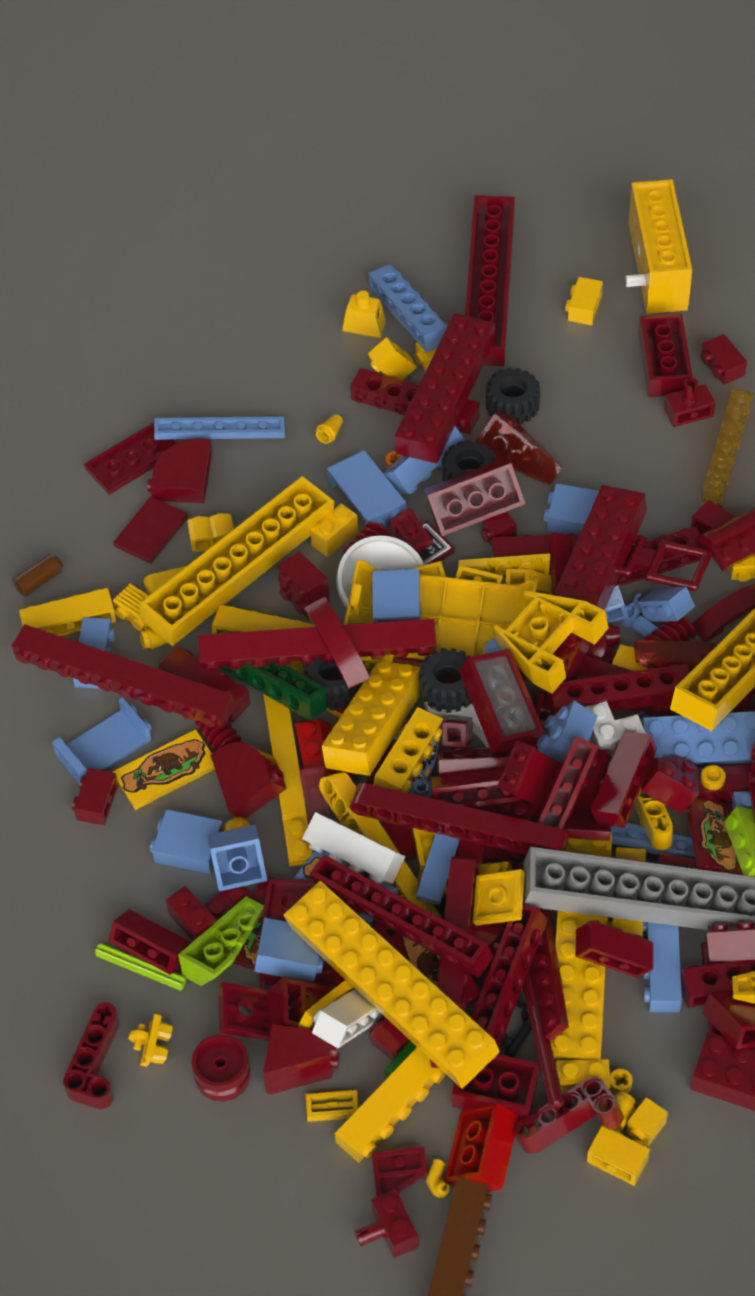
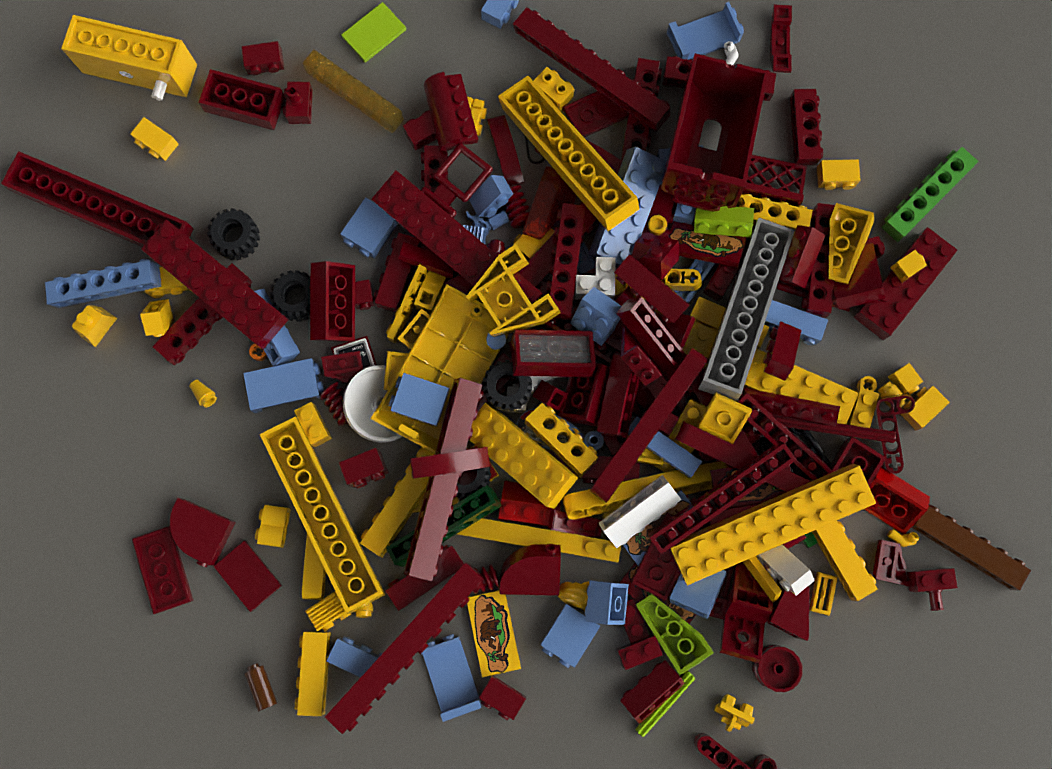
camera: 75 degrees left, 25 degrees up
(219, 428) = (164, 486): medium blue plate -> none
(513, 442) = (288, 251): clear red wedge -> none

